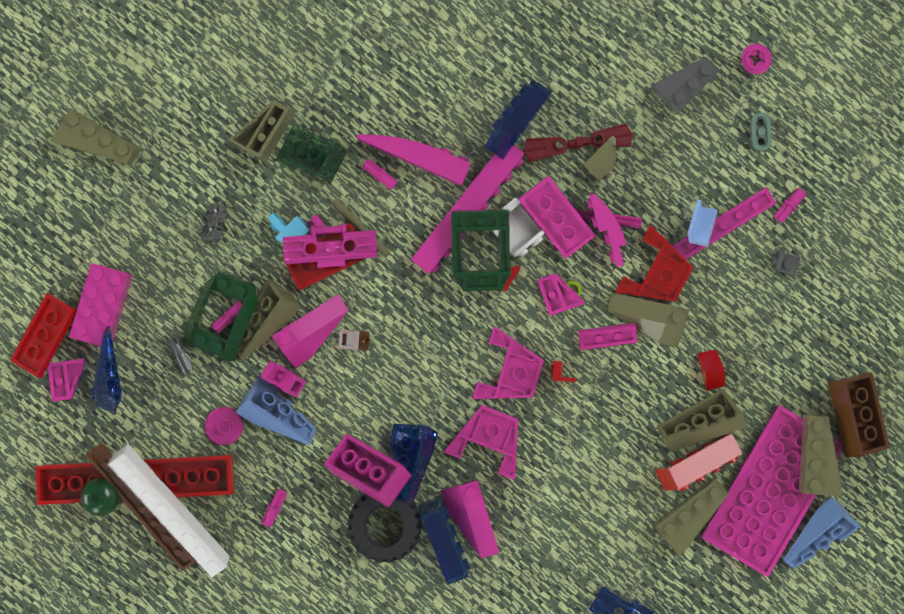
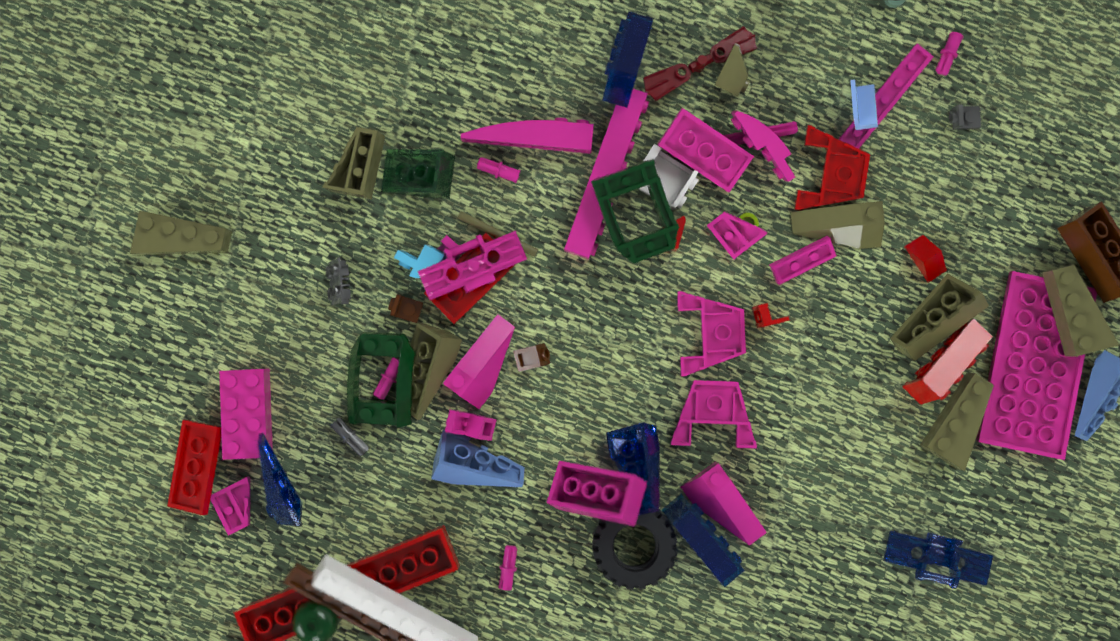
camera: 20 degrees left, 0 degrees up
(228, 422) = (423, 497): dark pink tile -> none
(263, 263) = (405, 308): none -> reddish brown bracket

